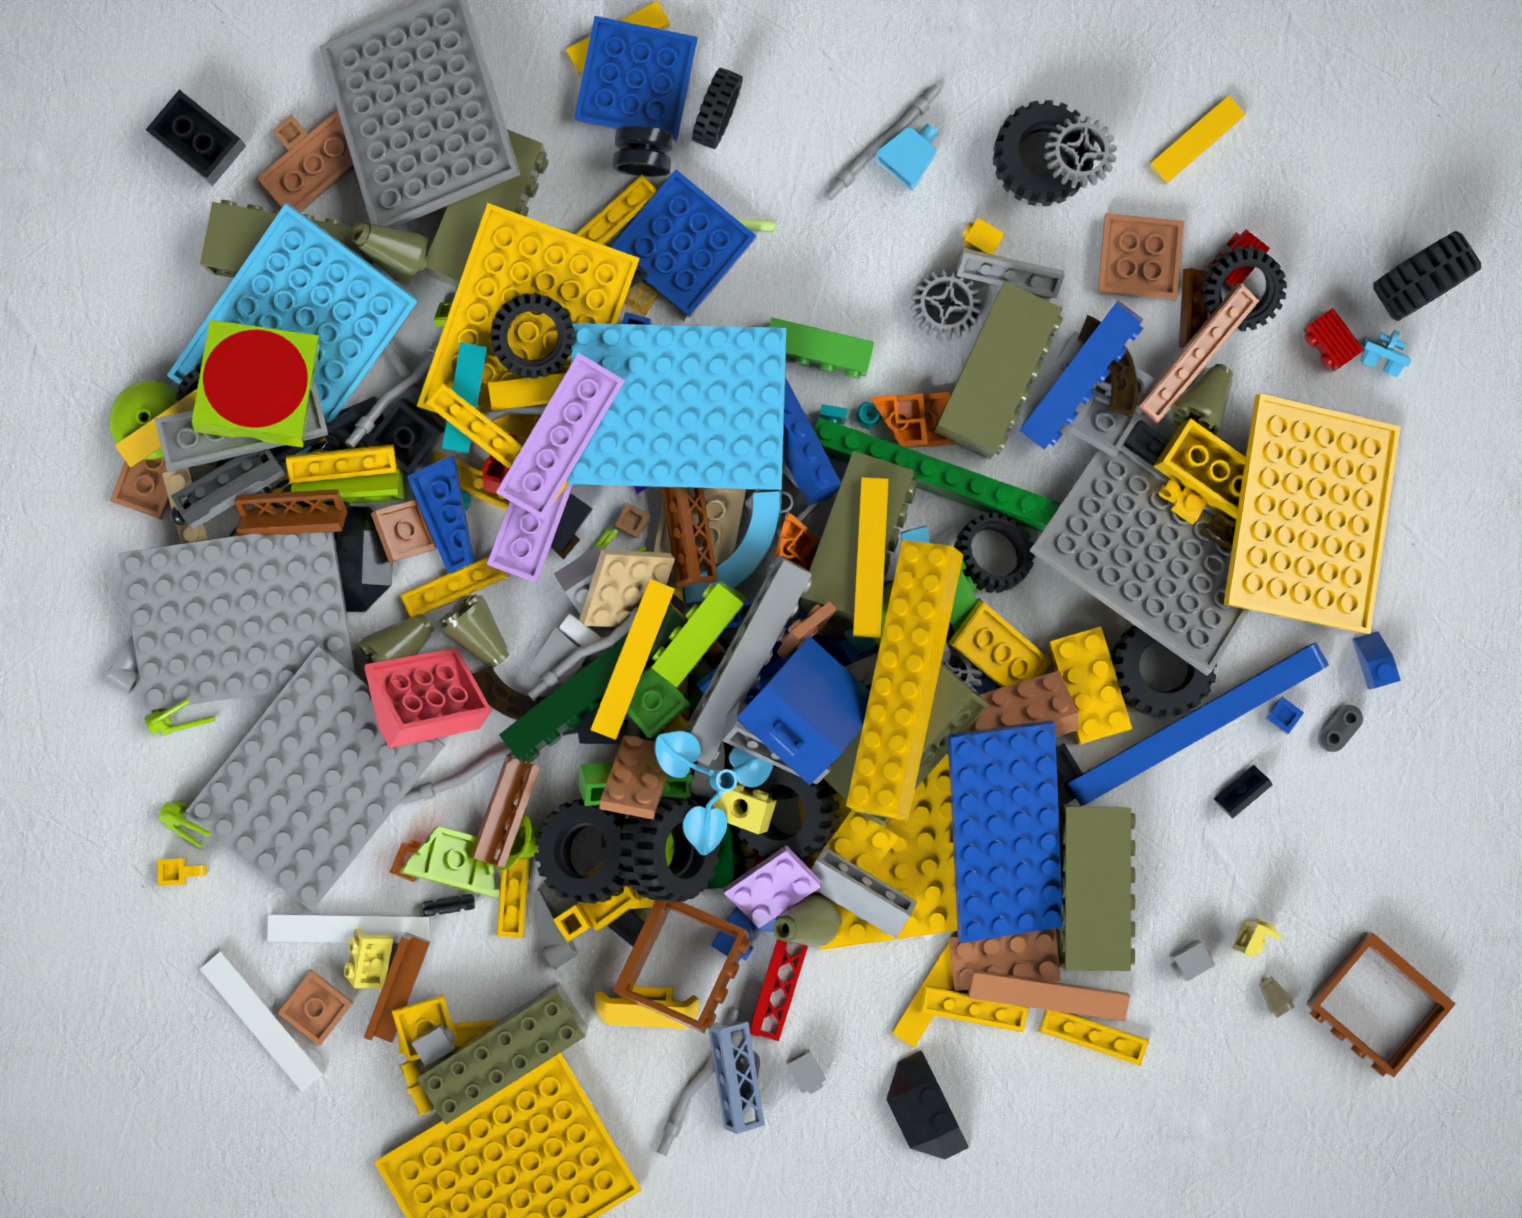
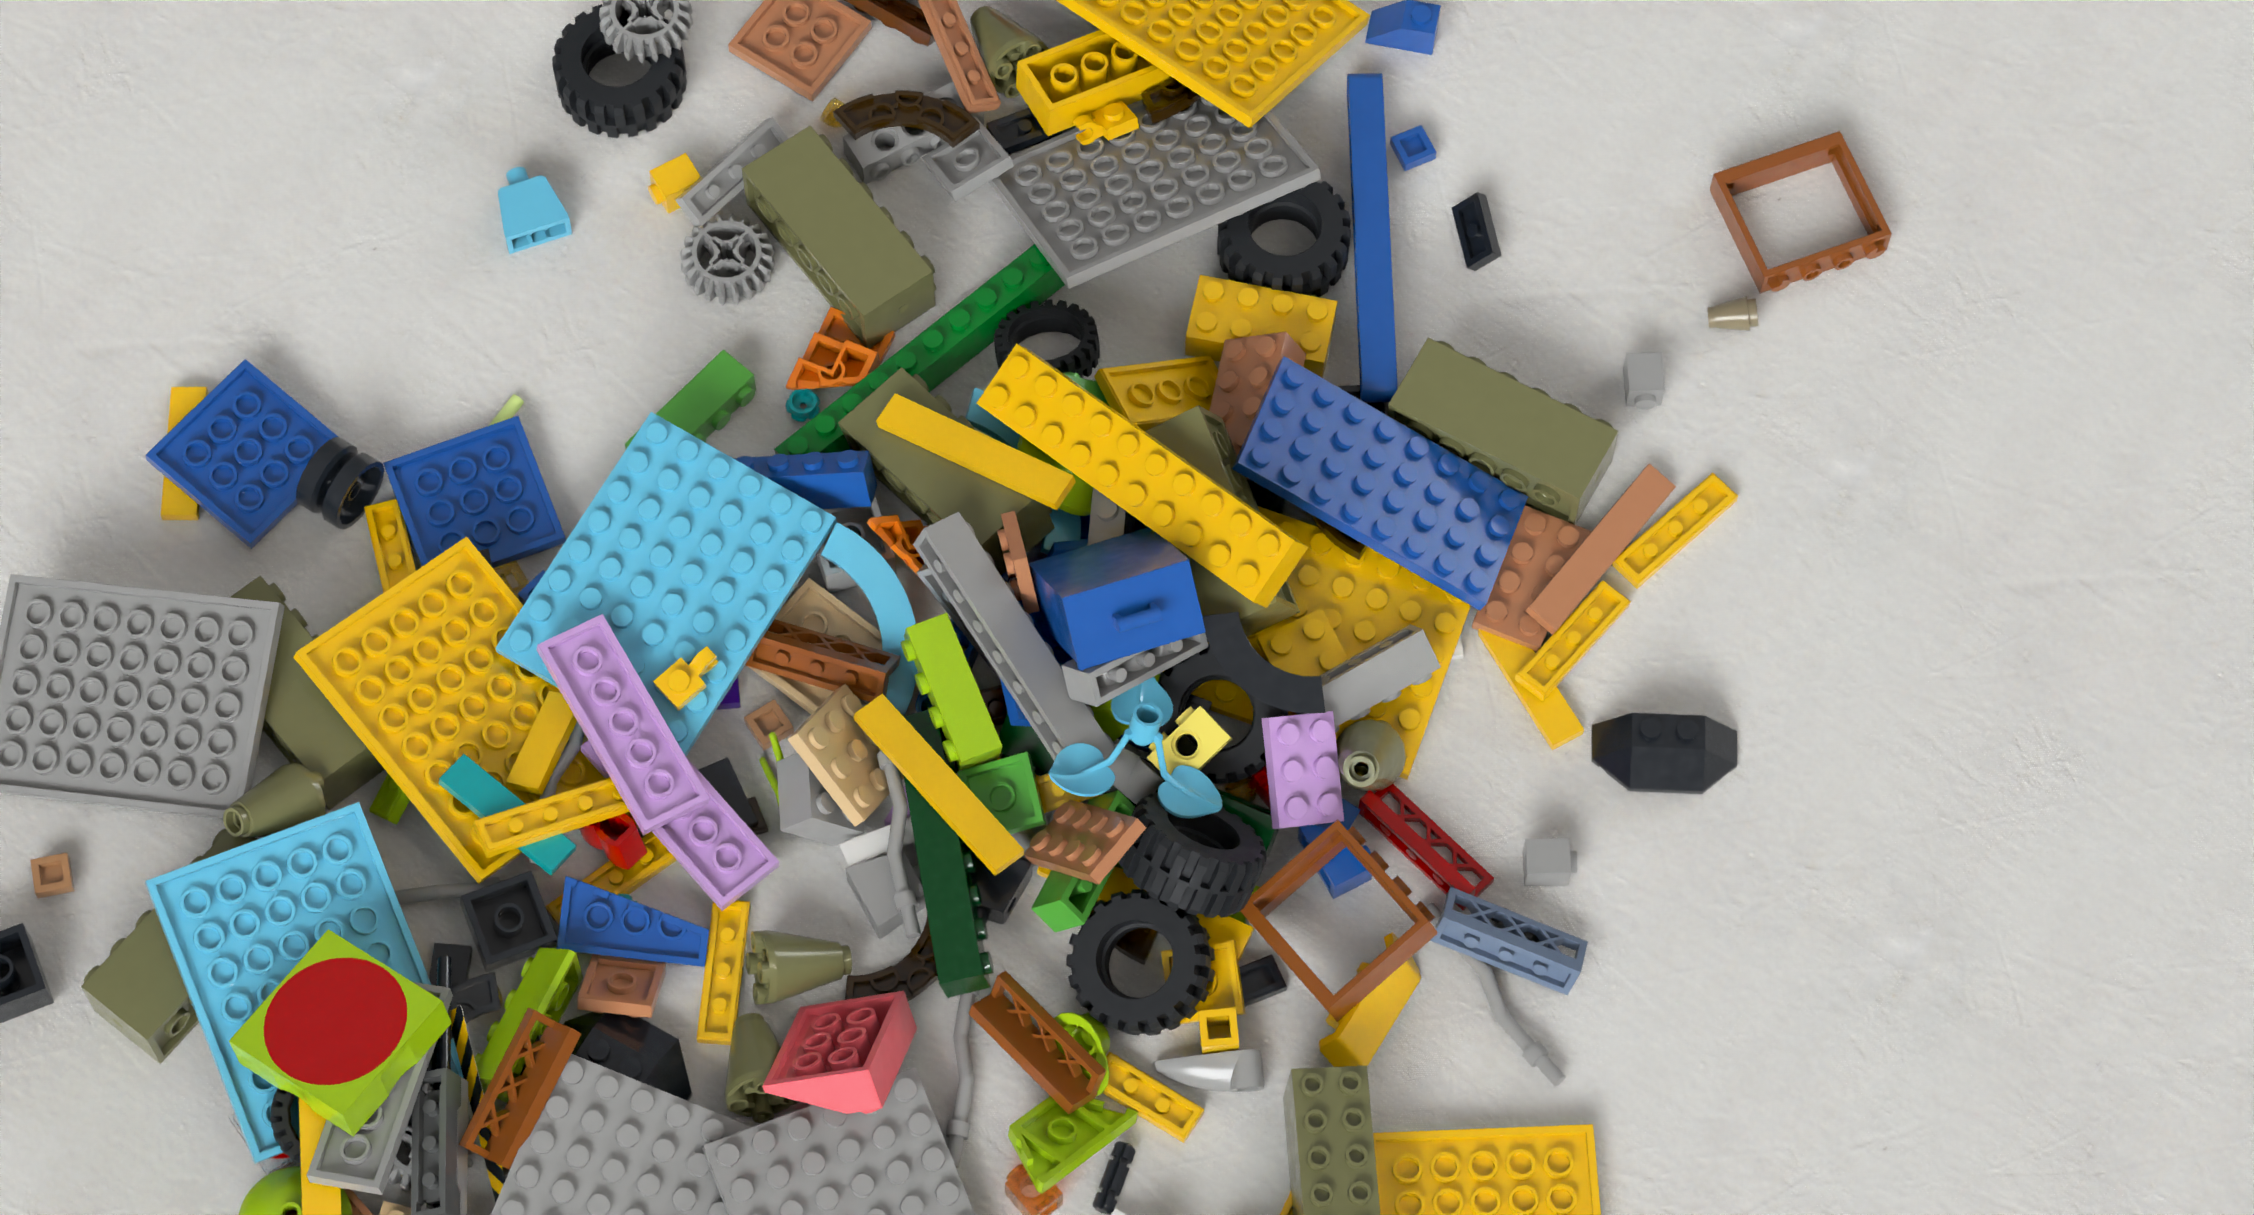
camera: 60 degrees left, 20 degrees down
(310, 166) = (106, 869): nougat plate -> none
(341, 464) = (496, 1005): yellow tile -> none
(366, 423) = (463, 952): light grey bar -> none
(555, 358) = (465, 733): black tyre -> none
(612, 457) = (683, 681): none -> yellow plate
(717, 108) = (344, 373): black tyre -> none
(811, 826) = (1257, 675): none -> black tile
(833, 413) = (777, 435): teal plate -> none
(846, 177) = (510, 289): light grey bar -> none
(1081, 375) = (899, 149): blue brick -> none
(1096, 310) = (828, 116): none -> clear yellow hinge
(1251, 937) = (1651, 296): light yellow bracket -> none
(1340, 727) = (1460, 98): dark grey plate -> none

